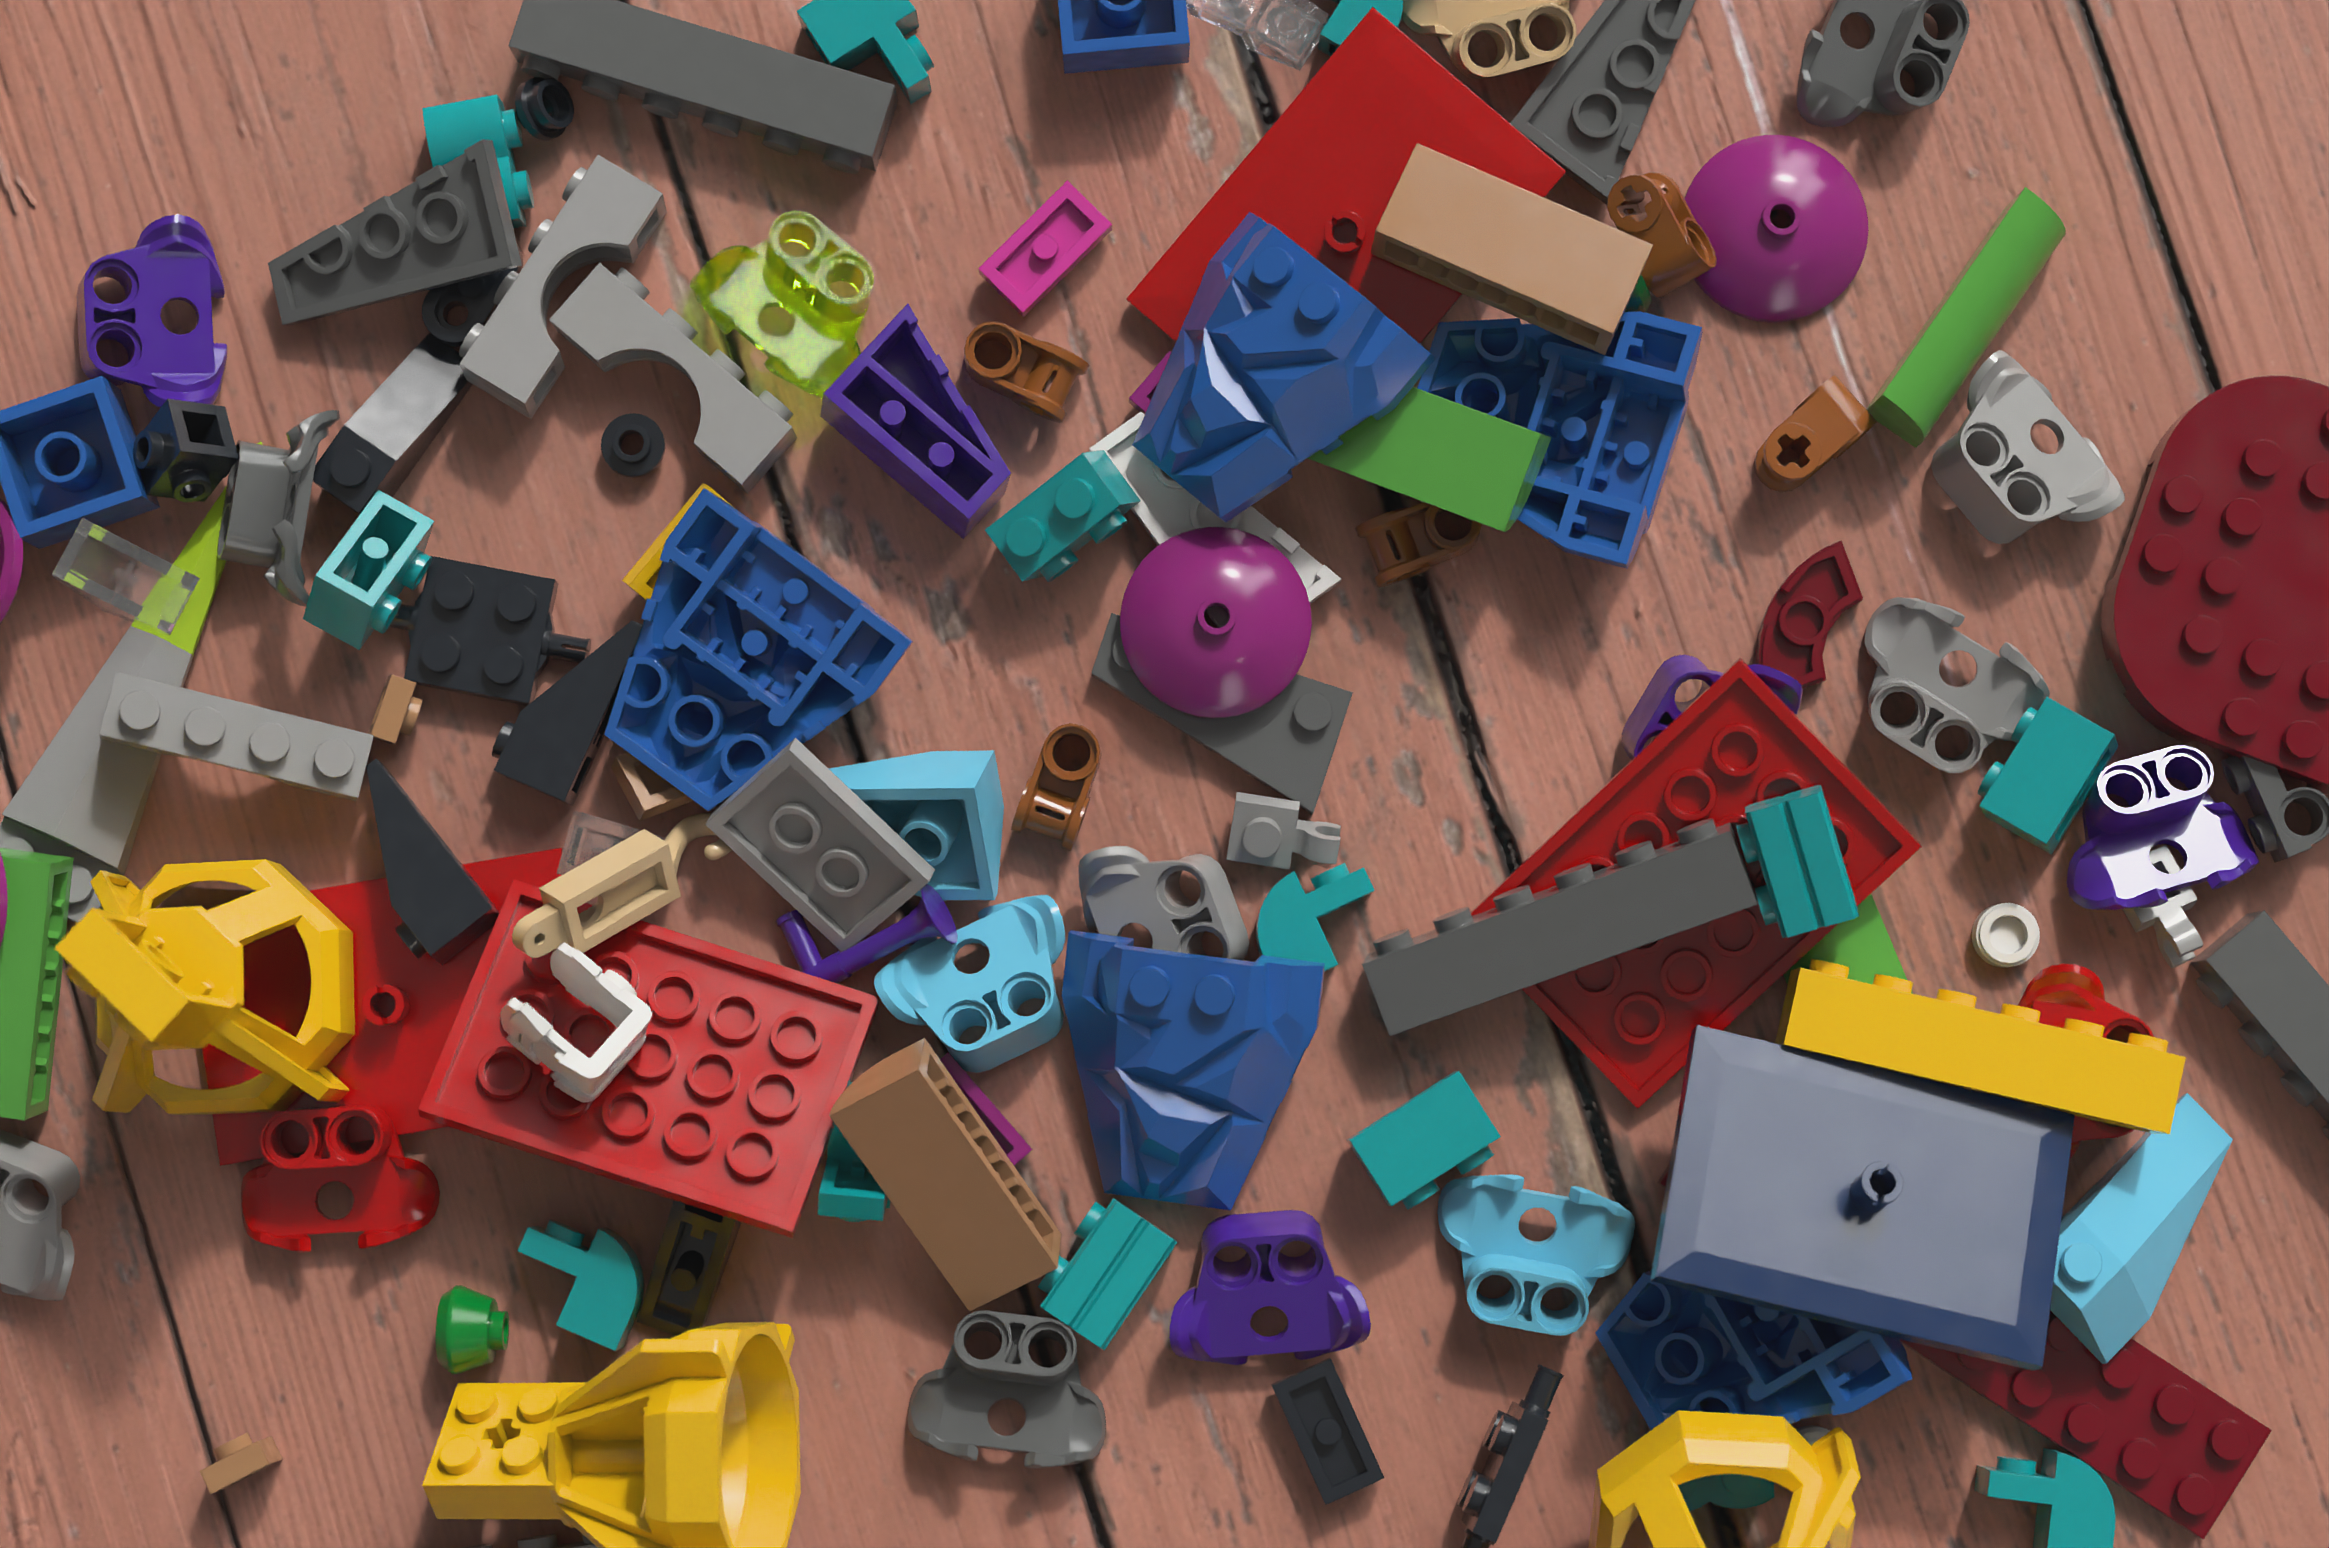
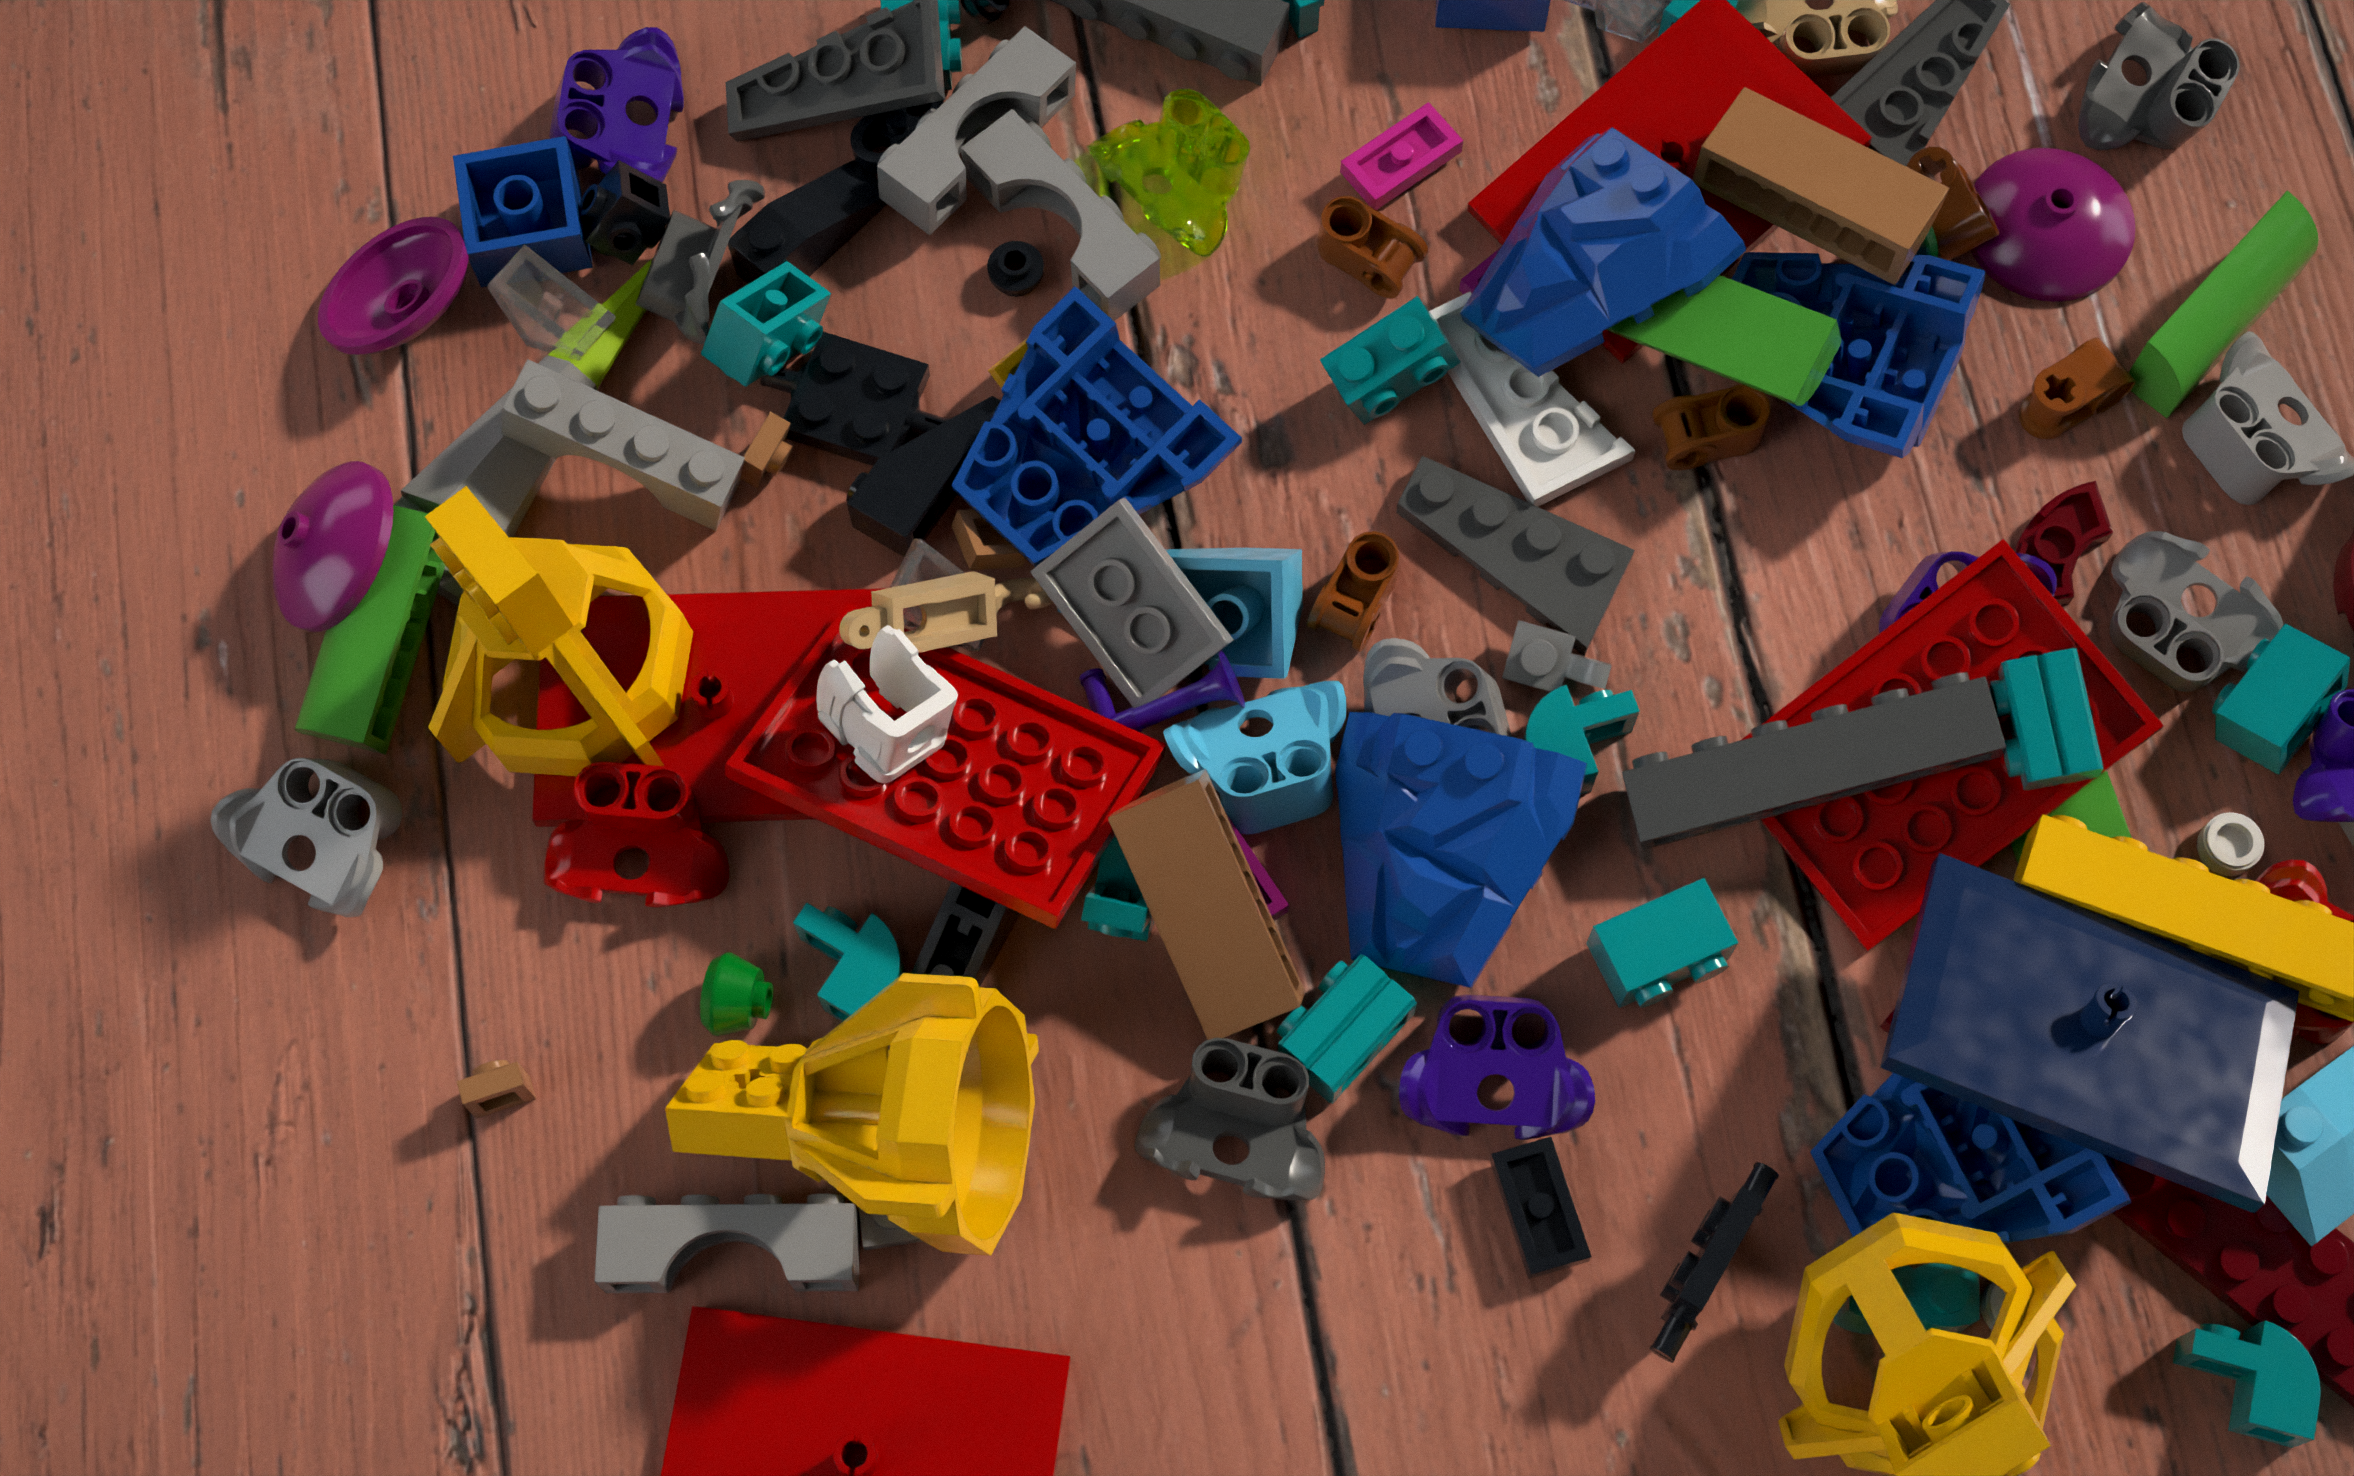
camera: 15 degrees right, 15 degrees down
(425, 879) = (771, 593): black slope -> none
(916, 426) = (1268, 275): dark purple wedge -> none
(1206, 667) = (1511, 499): magenta dish -> none
(1483, 1222) = (1710, 1031): medium azure piece -> none

